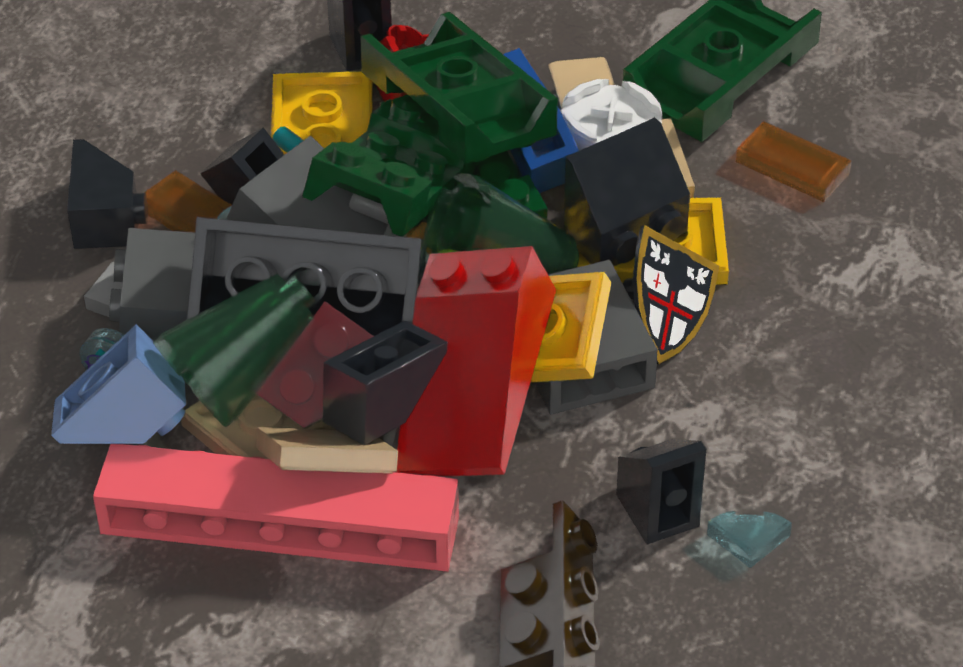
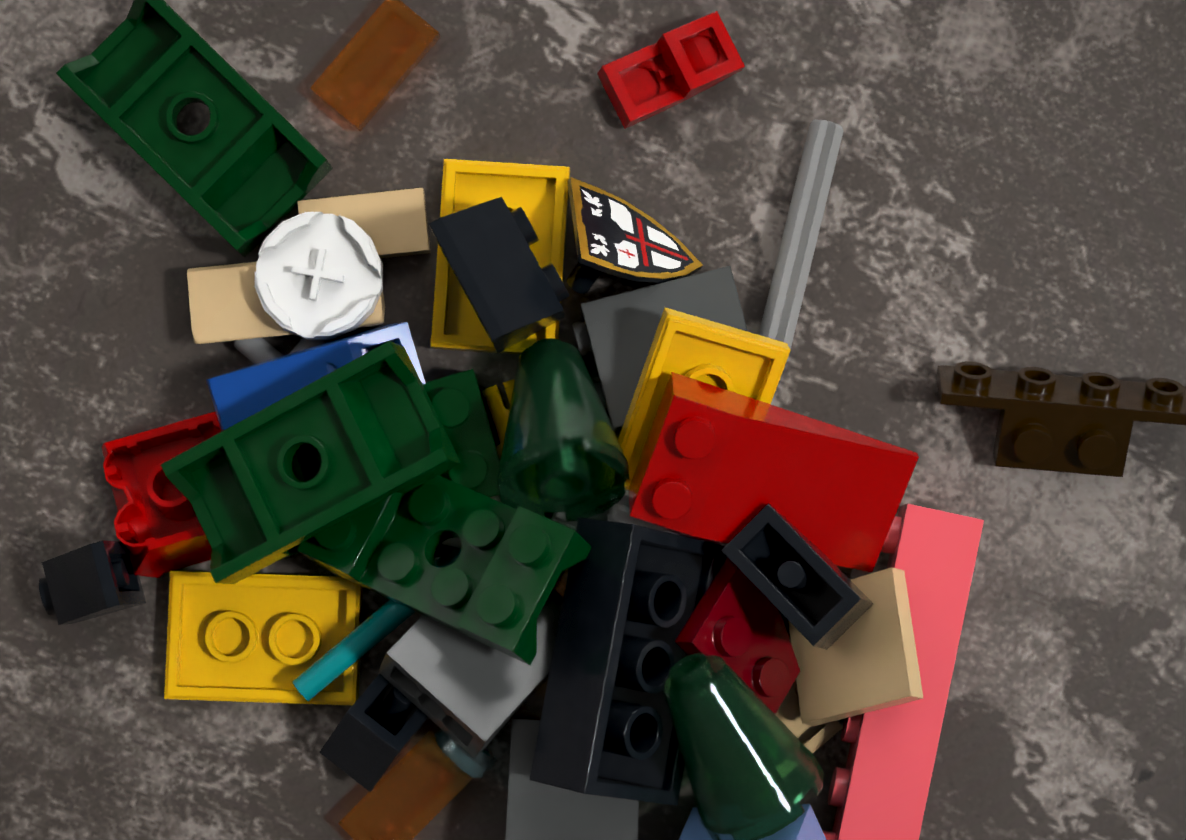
camera: 80 degrees left, 40 degrees up
(663, 487) = (912, 284): black slope -> none
(690, 423) = (801, 231): none -> light grey axle
(749, 535) = (954, 198): clear light blue tile -> none
(823, 333) = (670, 69): none -> red slope

